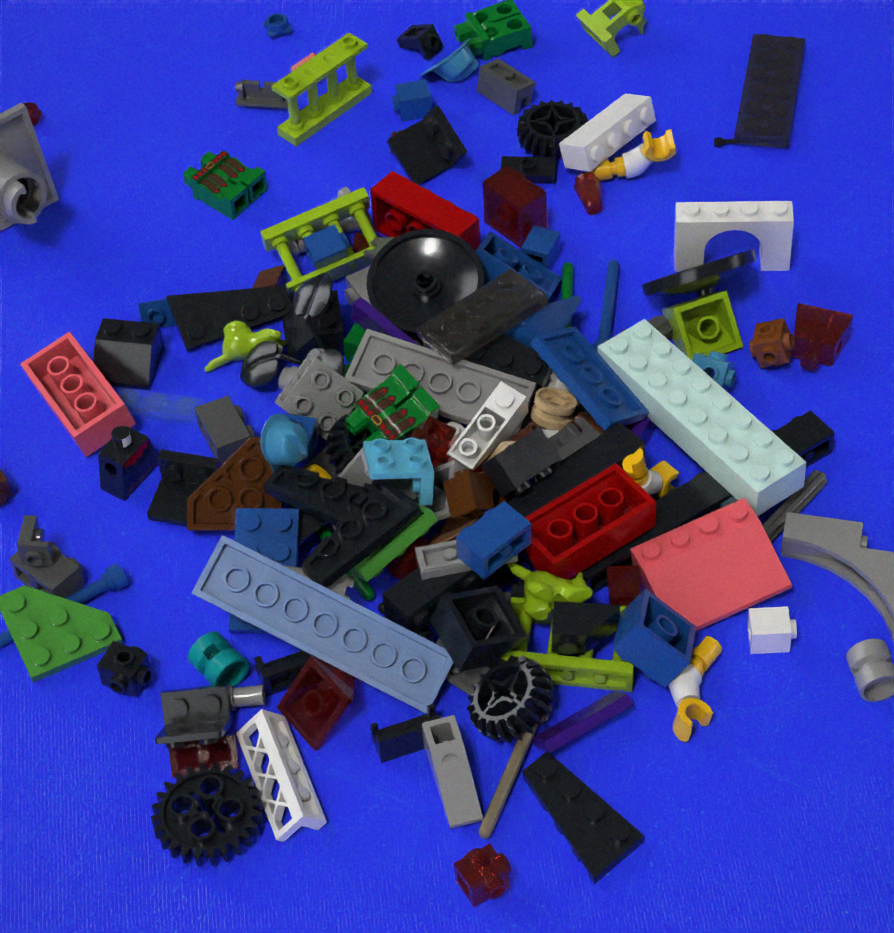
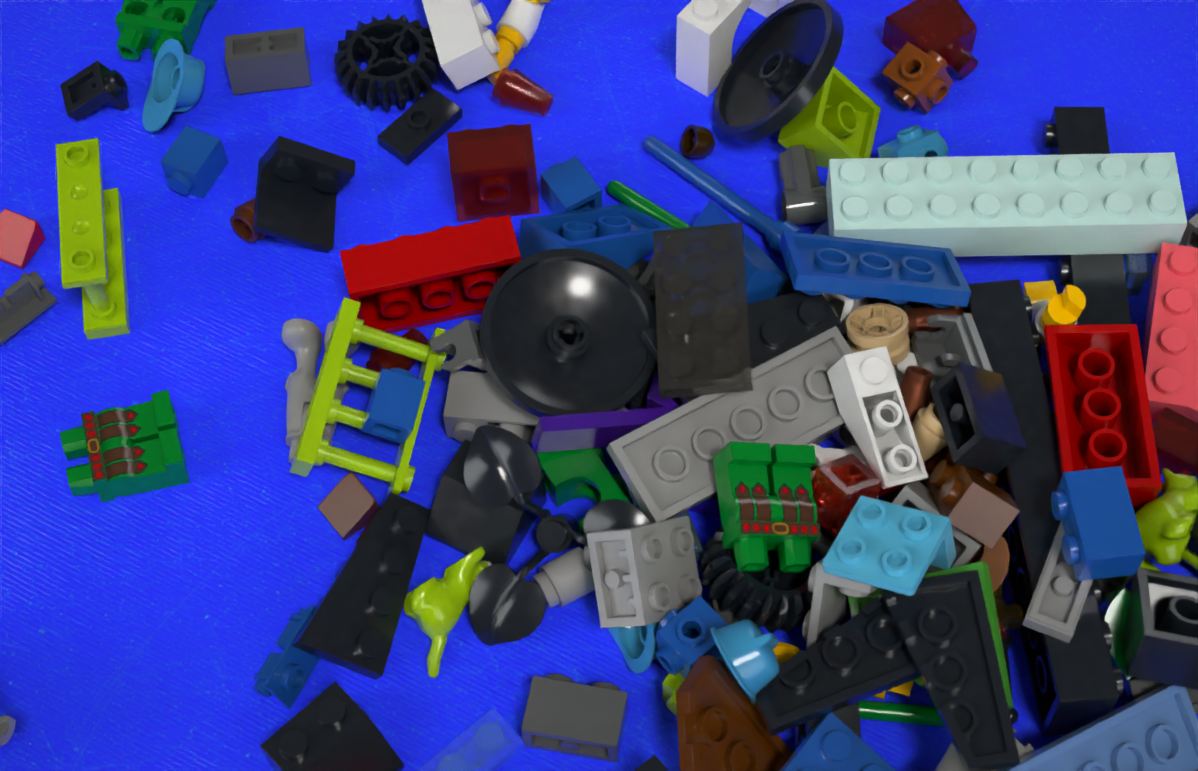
camera: 55 degrees left, 10 degrees up
(632, 282) = (697, 142): none -> dark brown hinge

